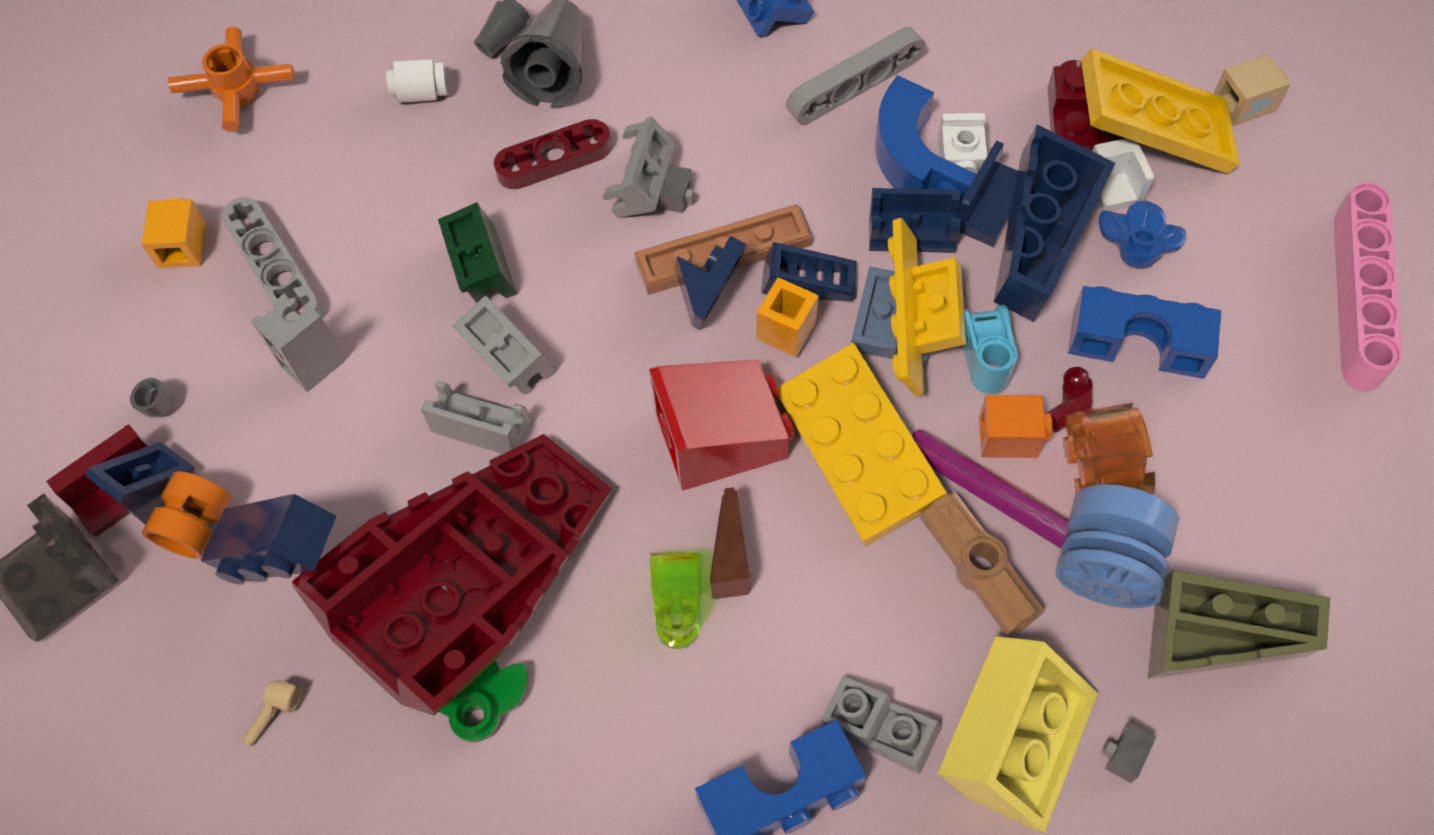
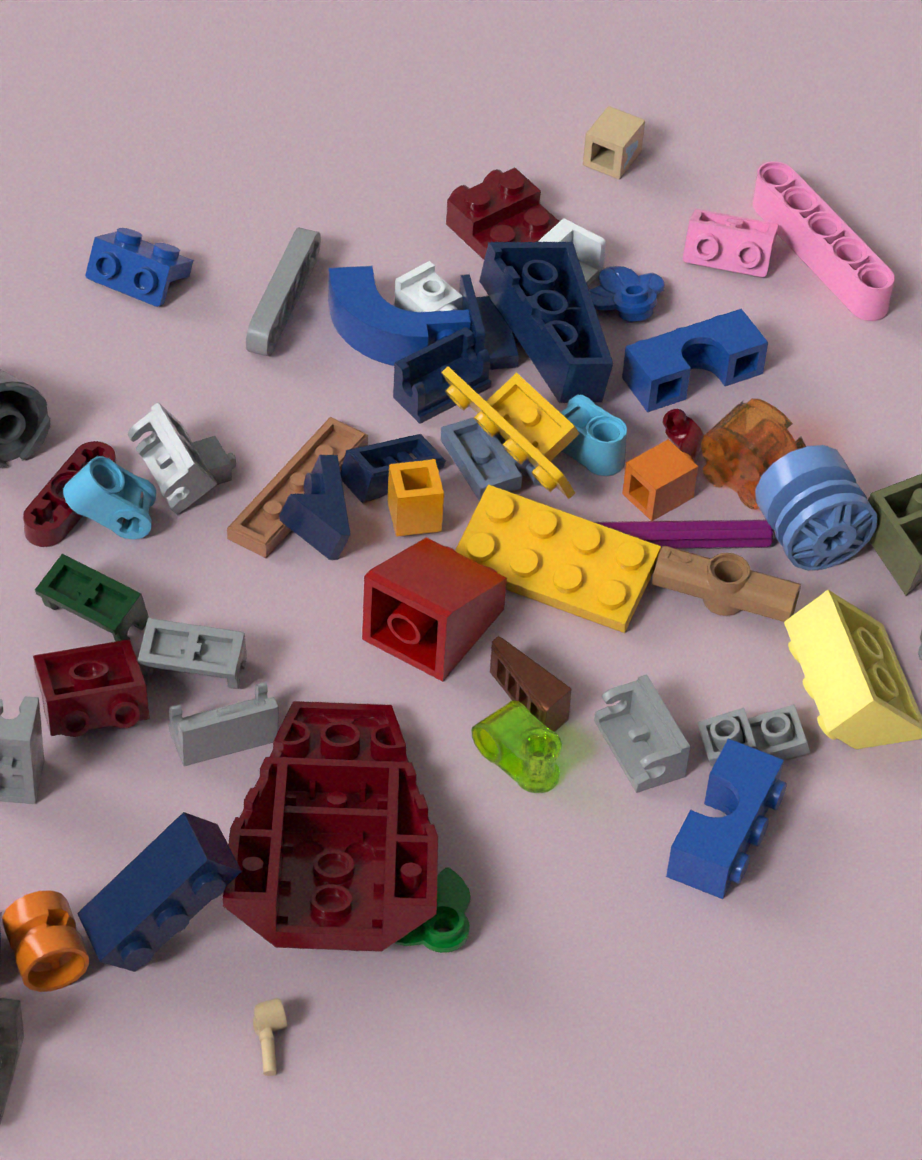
camera: 45 degrees left, 15 degrees down
(409, 325) = (91, 688): none -> dark red plate
(570, 178) = (110, 494): none -> medium azure piece
(783, 656) = (643, 735): none -> light grey hinge
(1158, 111) = (566, 189): yellow plate -> none
(1278, 237) = (729, 242): none -> bright pink bracket

